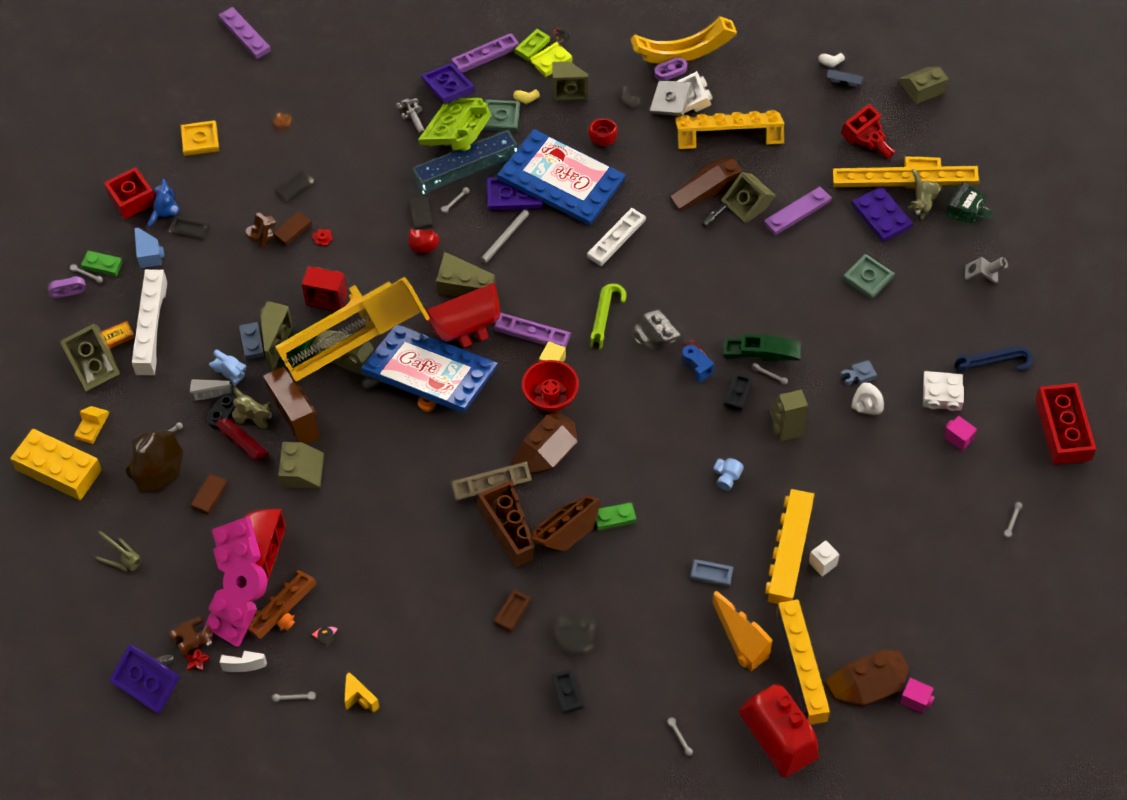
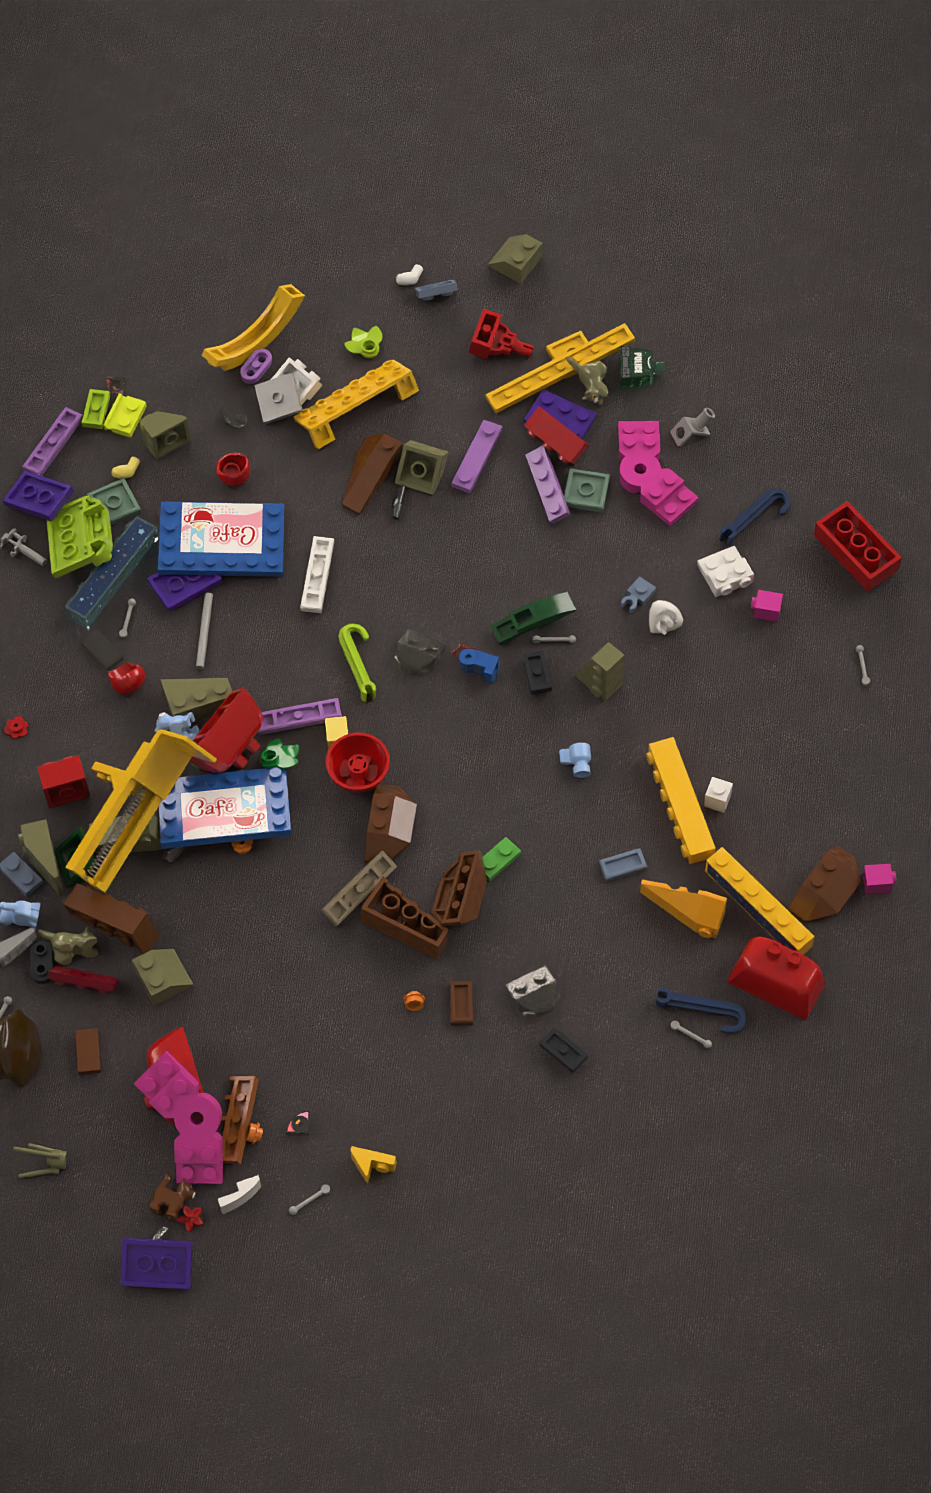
camera: 30 degrees left, 5 degrees up
(434, 290) = (177, 724): none -> light blue animal
(476, 589) = (414, 1001): none -> orange plate
(498, 352) = (279, 756): none -> green plate
(705, 719) = (703, 1005): none -> dark blue piece
(765, 90) = (362, 341): none -> lime plate
(839, 257) = (547, 484): none -> medium lavender plate
(868, 223) = (556, 436): none -> red brick
(927, 301) = (658, 488): none -> dark pink plate

